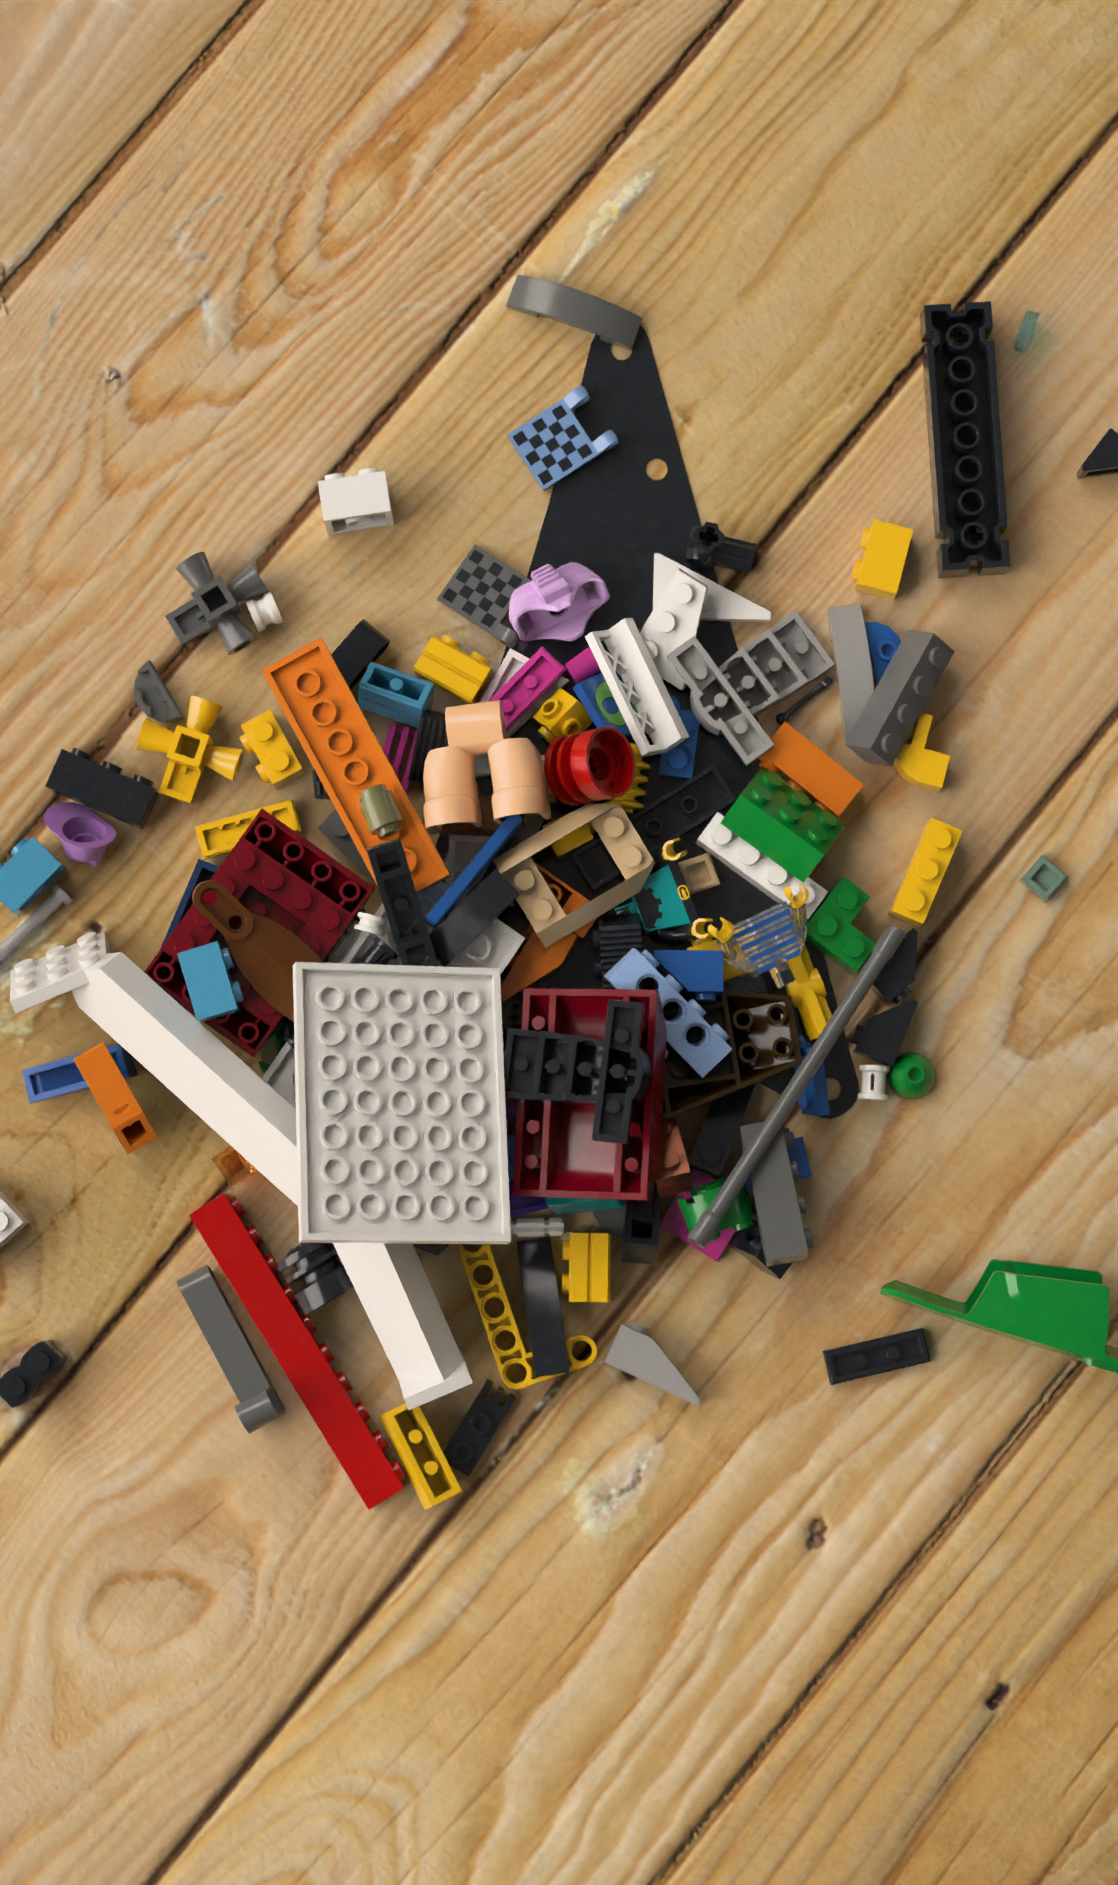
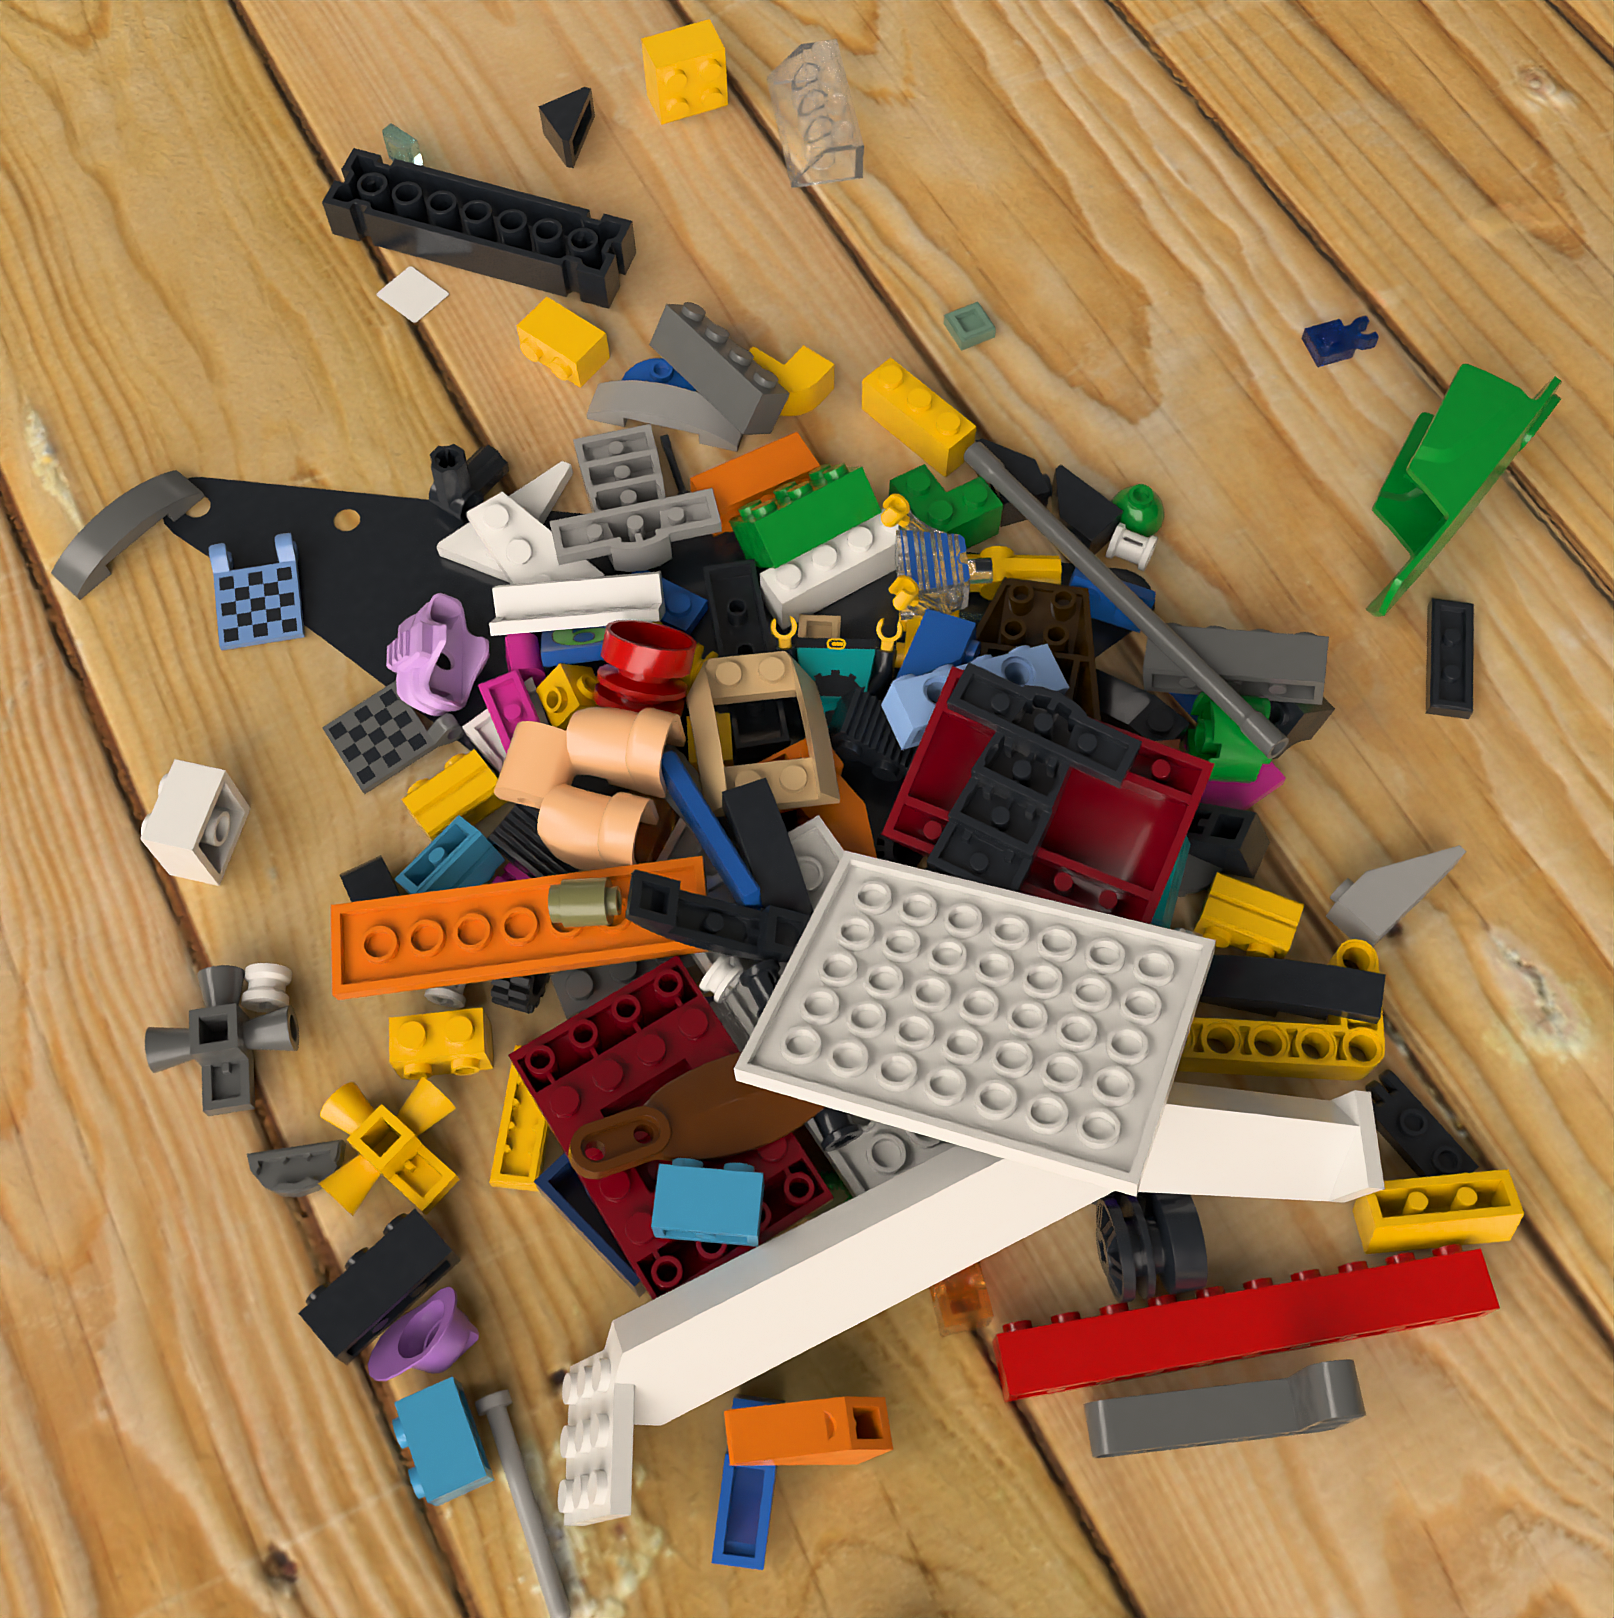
camera: 65 degrees left, 20 degrees down
(889, 411) = (412, 294): none -> white sticker

